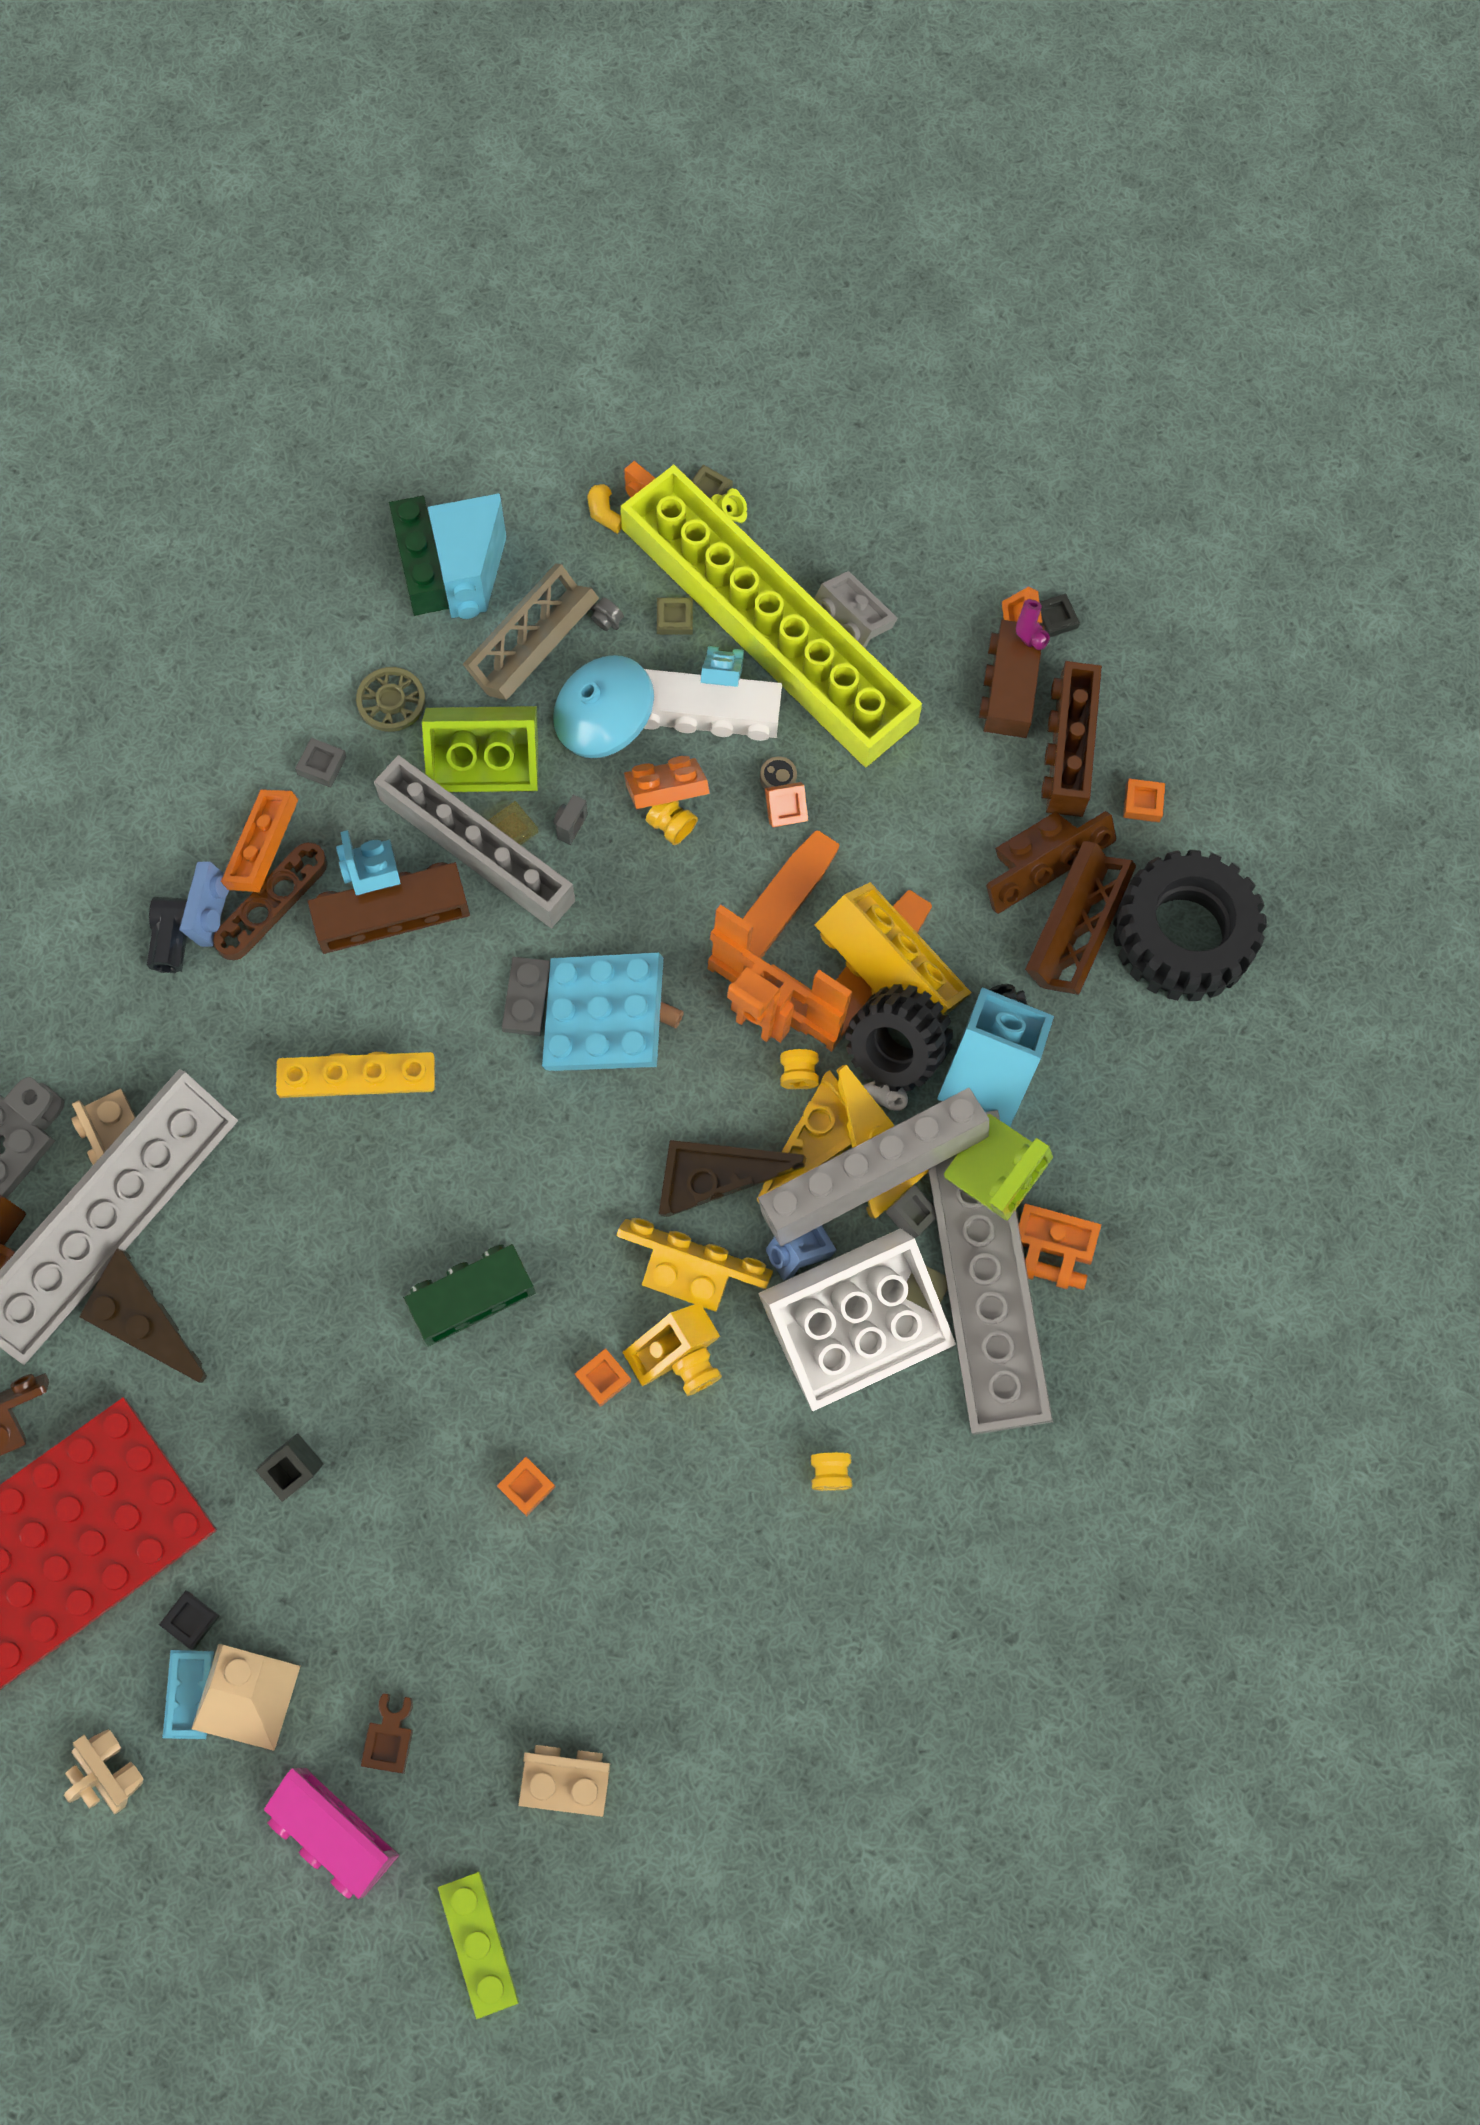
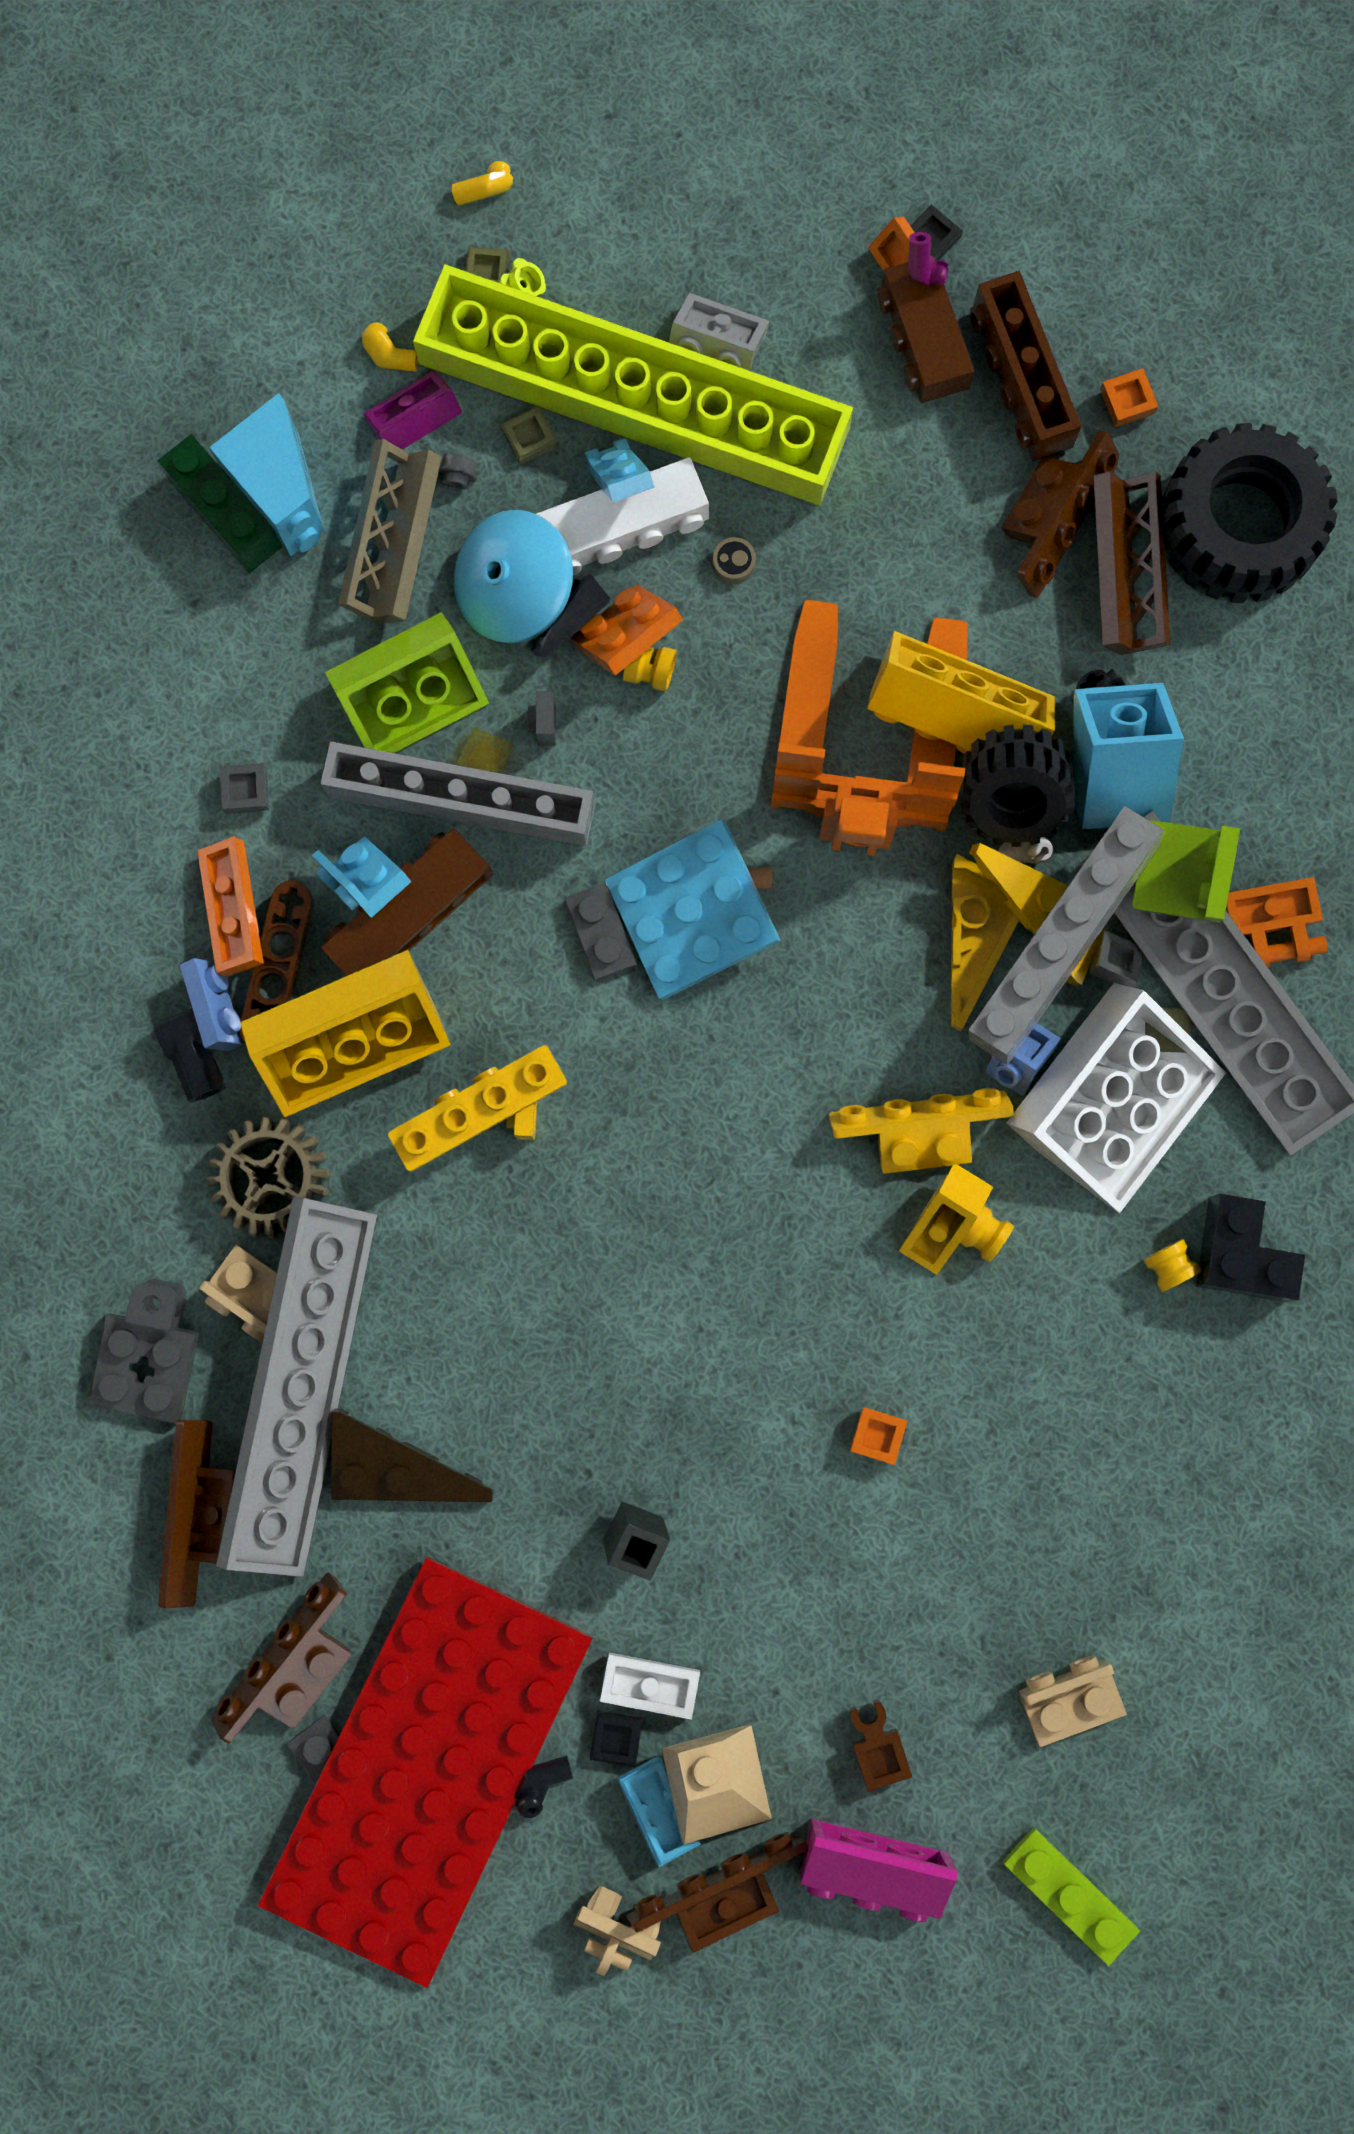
camera: 20 degrees left, 10 degrees up
(107, 1621) = (537, 1782): none -> black arm
(188, 1043) = (280, 1159): none -> dark tan gear
(196, 1794) = (723, 1901): none -> reddish brown bracket
(238, 1590) = (650, 1685): none -> white plate
(288, 970) = (344, 1033): none -> yellow brick
(388, 1106) = (524, 1123): none -> yellow plate
(390, 699) = (277, 680): olive wheel -> none
(469, 1294) = (715, 1272): dark green brick -> none
(599, 560) = (414, 411): none -> magenta slope
(603, 1377) = (895, 1287): orange plate -> none
(636, 478) = (410, 301): orange plate -> none
(641, 751) = (583, 604): none -> black slope
(708, 1172) = (889, 1024): dark brown wing -> none
(741, 429) = (484, 186): none -> yellow arm
(786, 804) = (761, 588): plate -> none
(799, 1069) = (925, 868): yellow wheel -> none
(882, 1492) = (1233, 1255): none -> black brick

